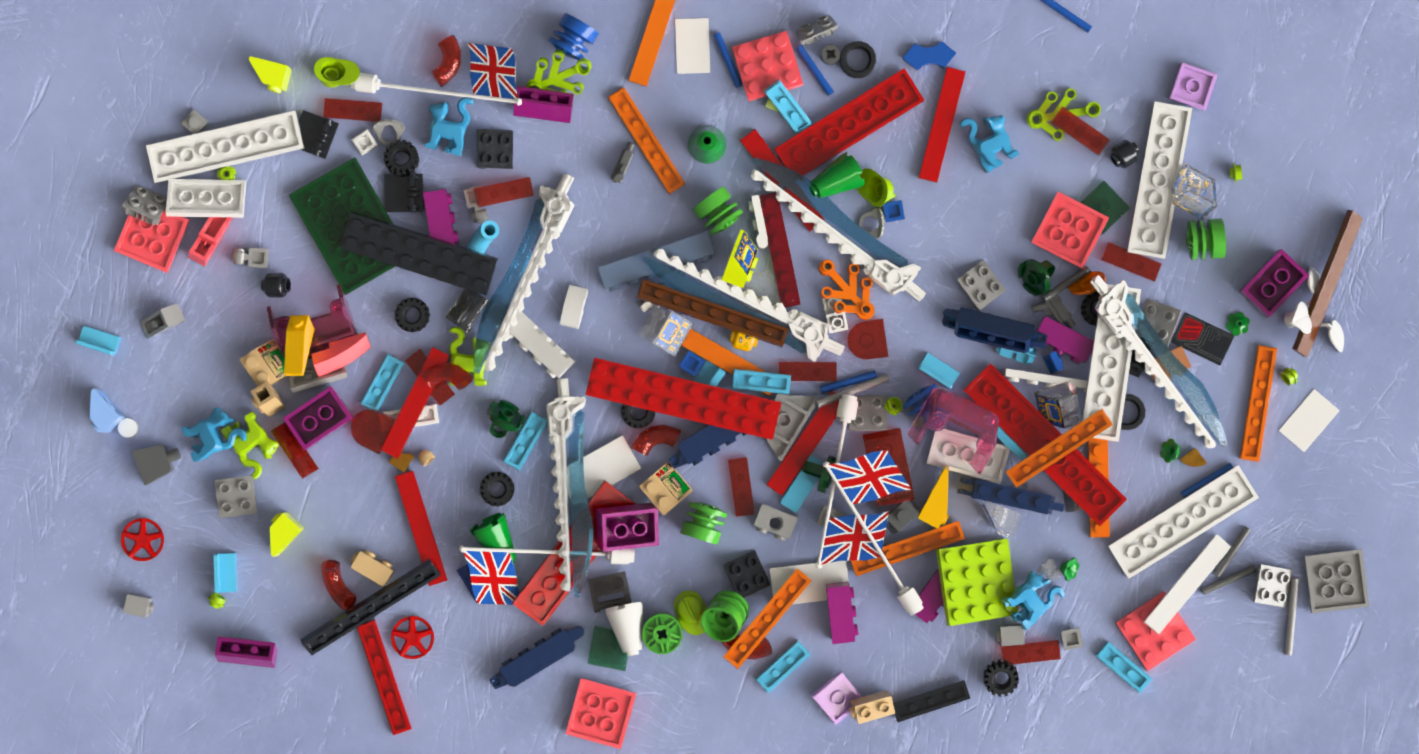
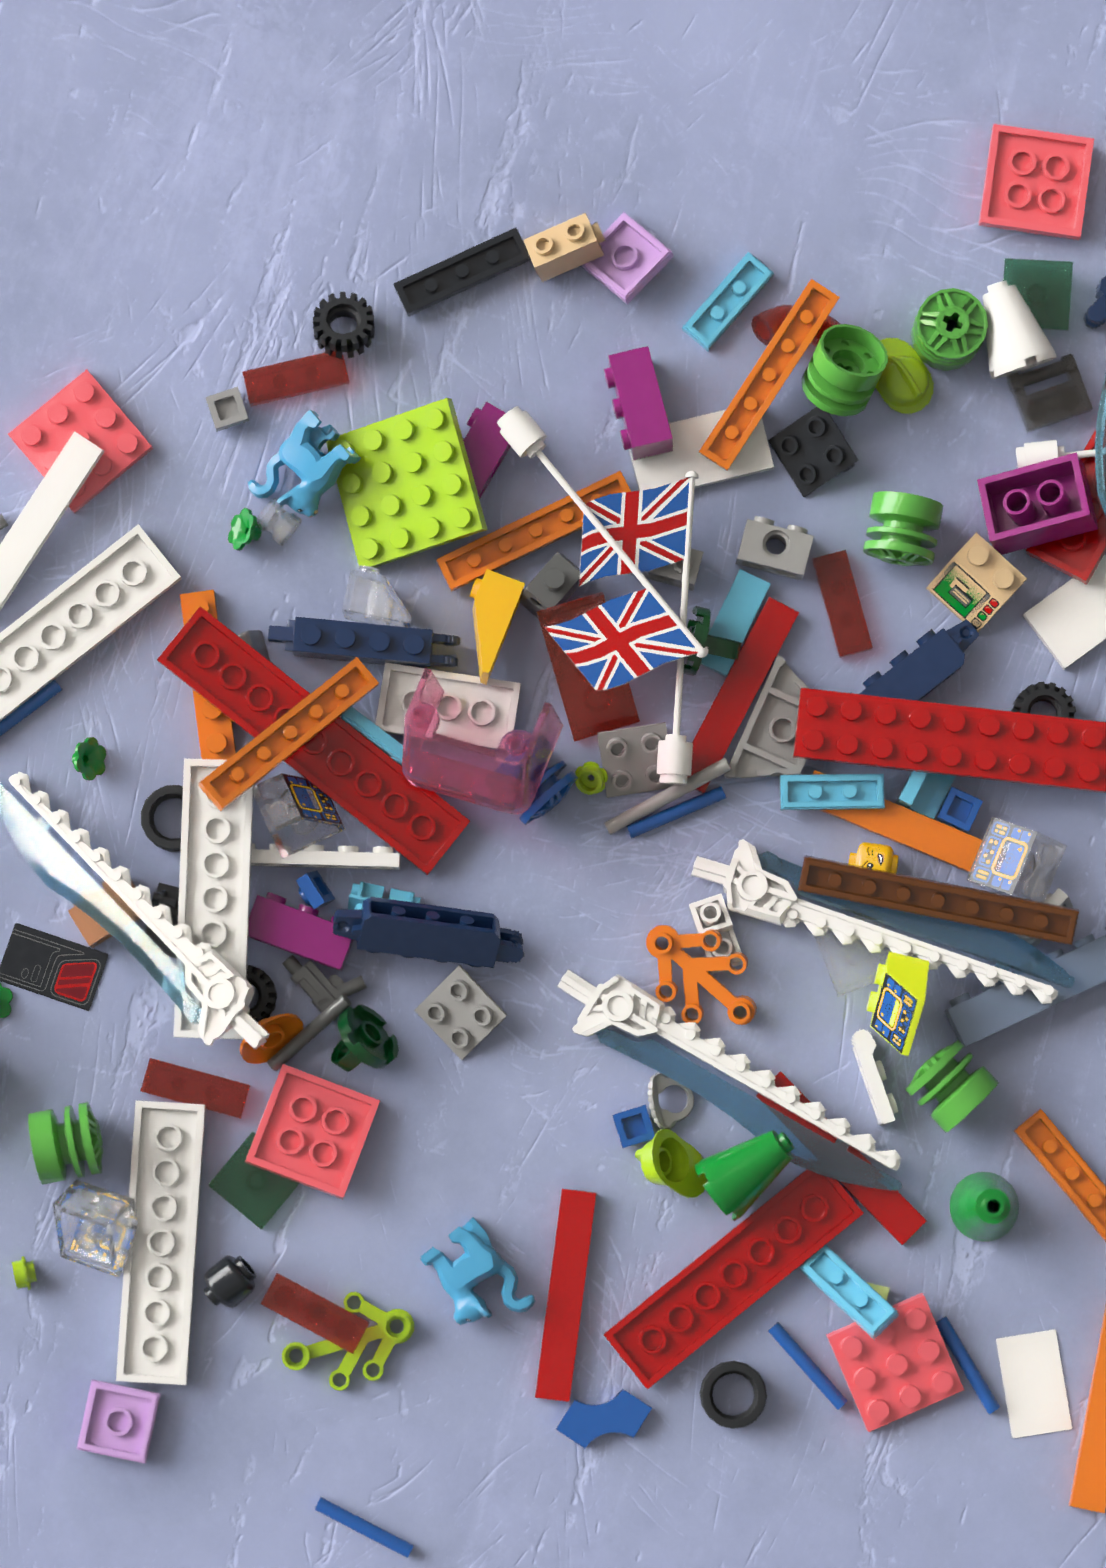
camera: 170 degrees right, 5 degrees down
(655, 435) = (1009, 672): clear red cylinder -> none
(779, 250) = (828, 1031): dark red plate -> none
(809, 371) = (748, 822): clear red tile -> none
(823, 25) = (828, 1434): light grey hinge -> none
(832, 57) = (779, 1394): dark grey wheel -> none
(868, 340) = (650, 890): clear red tile -> none
(938, 371) = (518, 849): medium azure panel -> none
(1010, 635) = (335, 401): light grey brick -> none
(1123, 667) = (129, 372): medium azure tile -> none
(1162, 319) = (130, 989): light grey hinge -> none
(1193, 459) = (45, 750): pearl gold tile -> none

